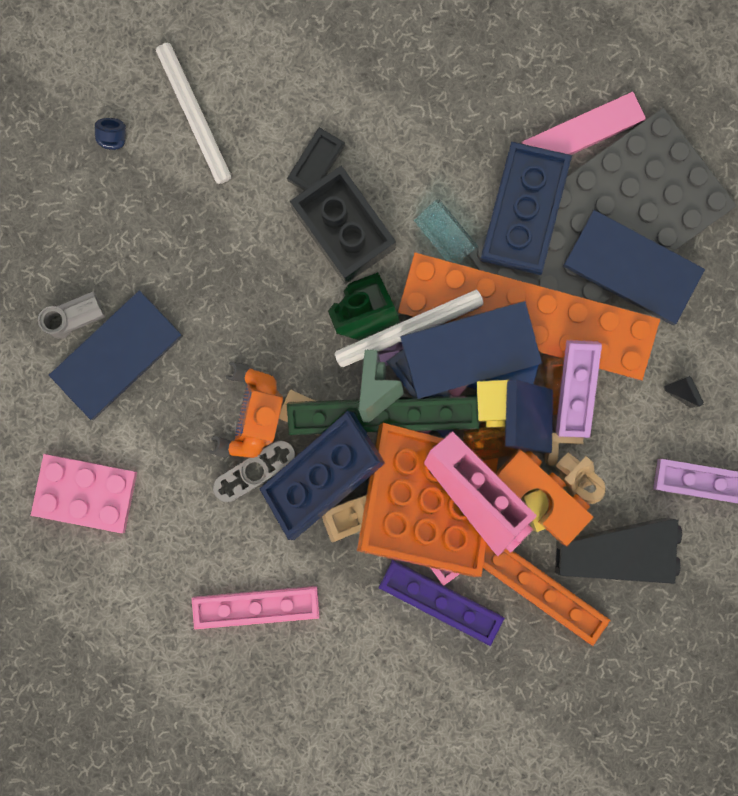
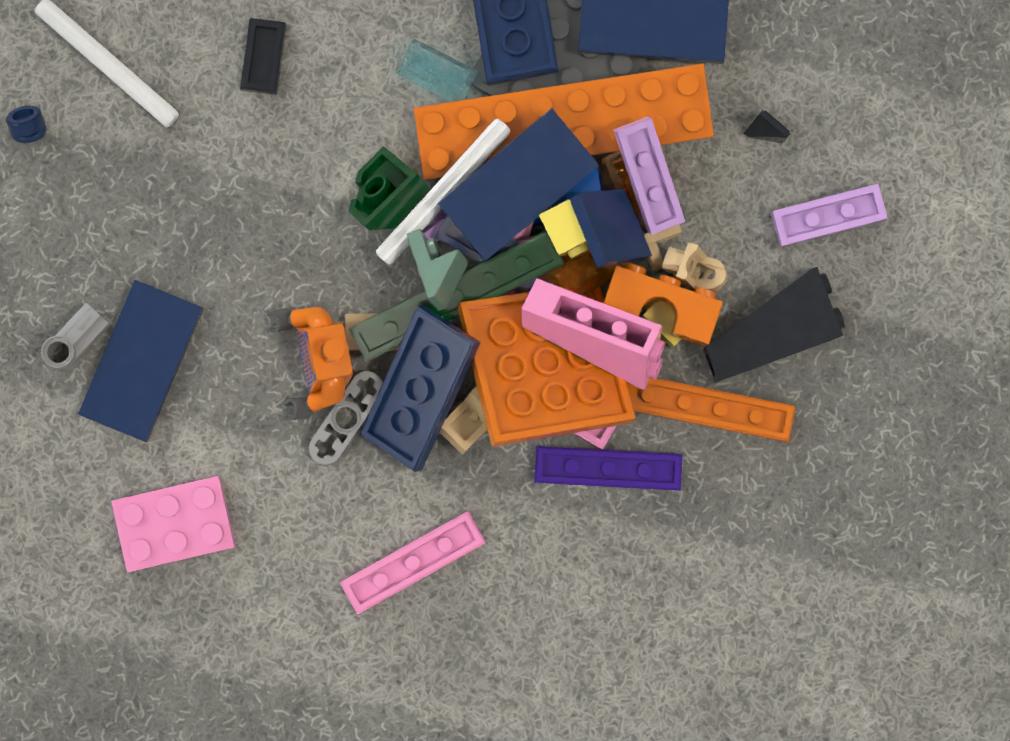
camera: 25 degrees left, 0 degrees up
(343, 224) = (323, 112): black brick -> none

